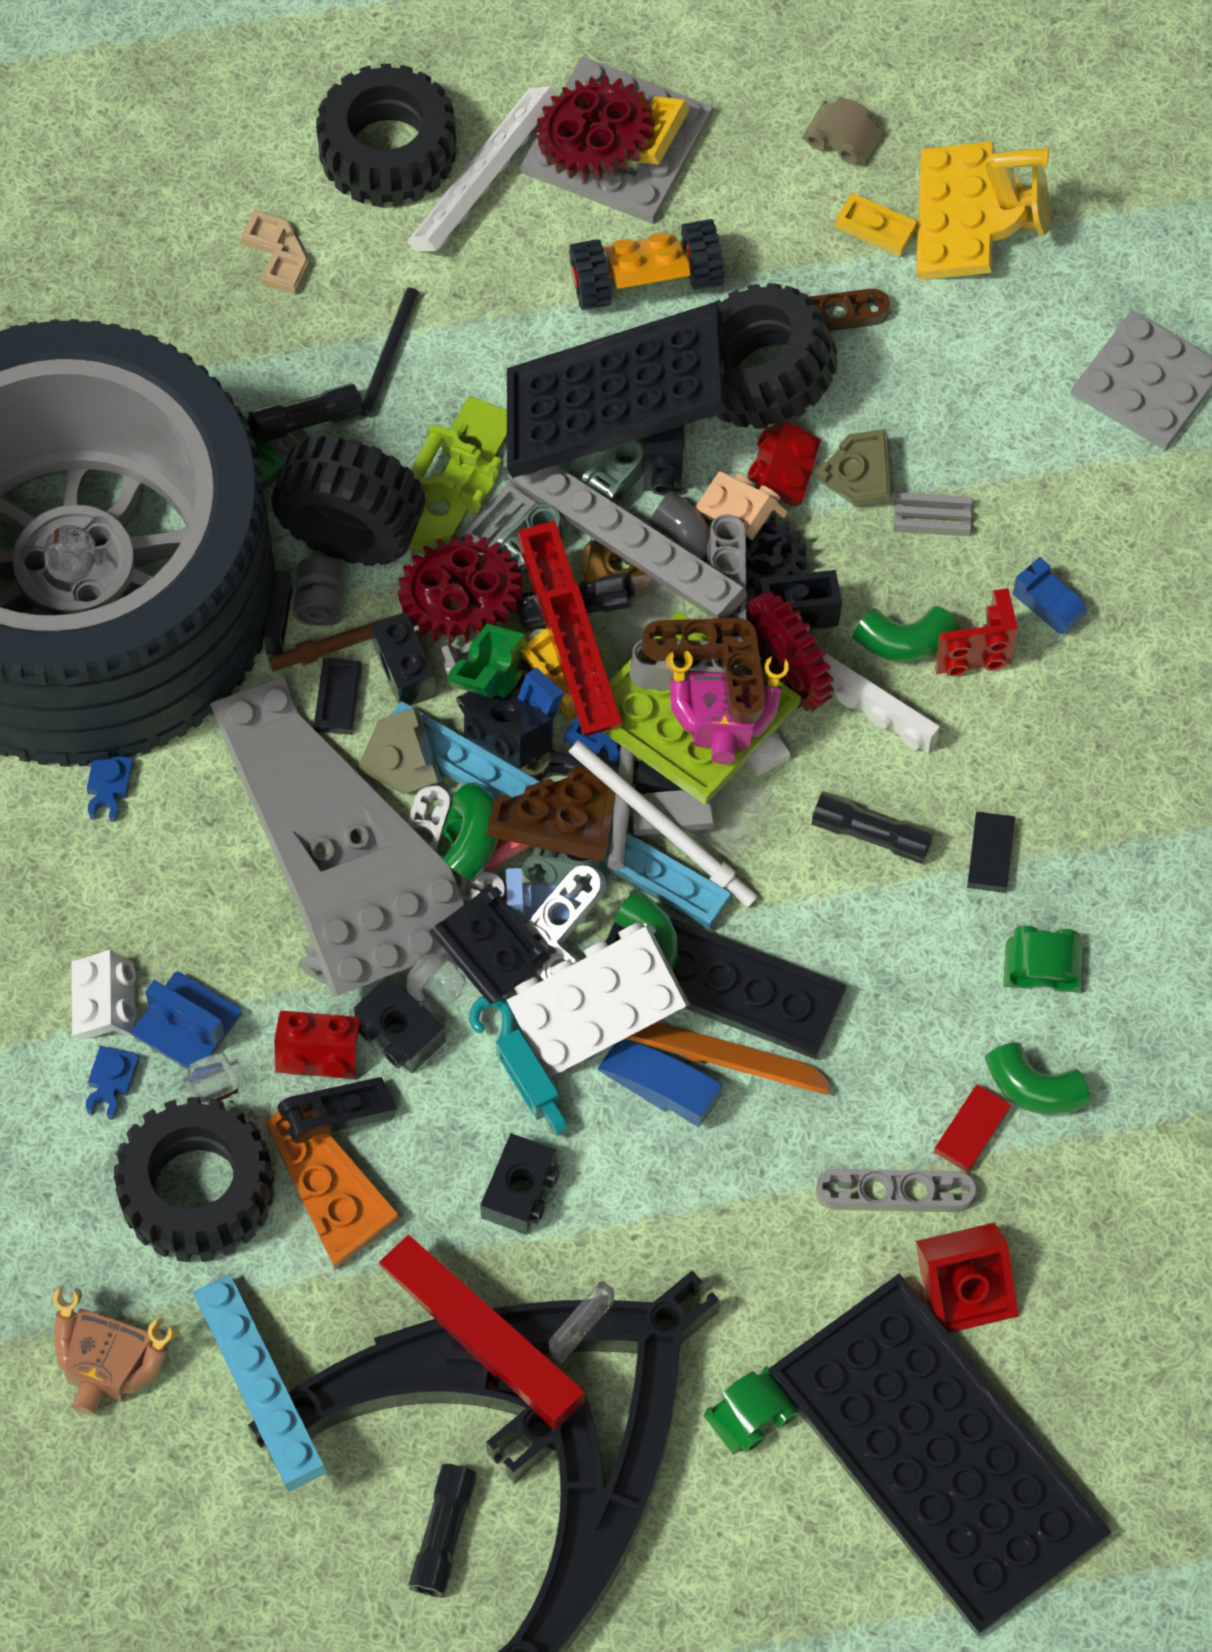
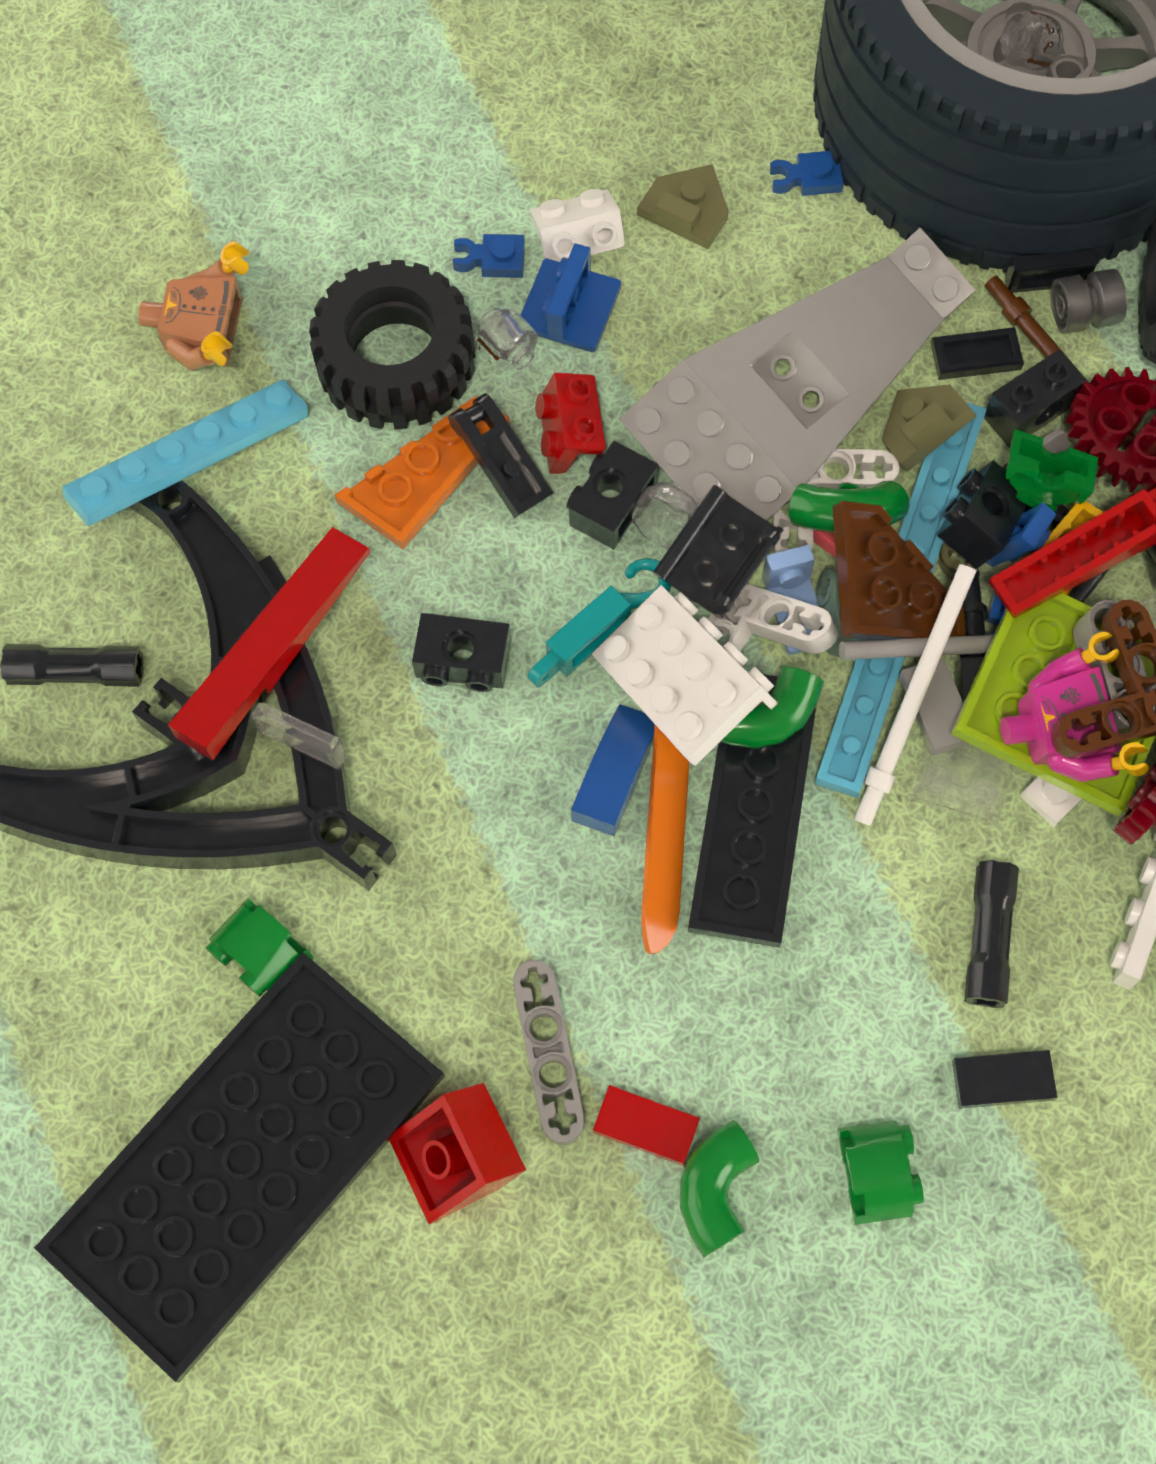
camera: 80 degrees right, 5 degrees up
(109, 896) = (687, 205): none -> olive plate

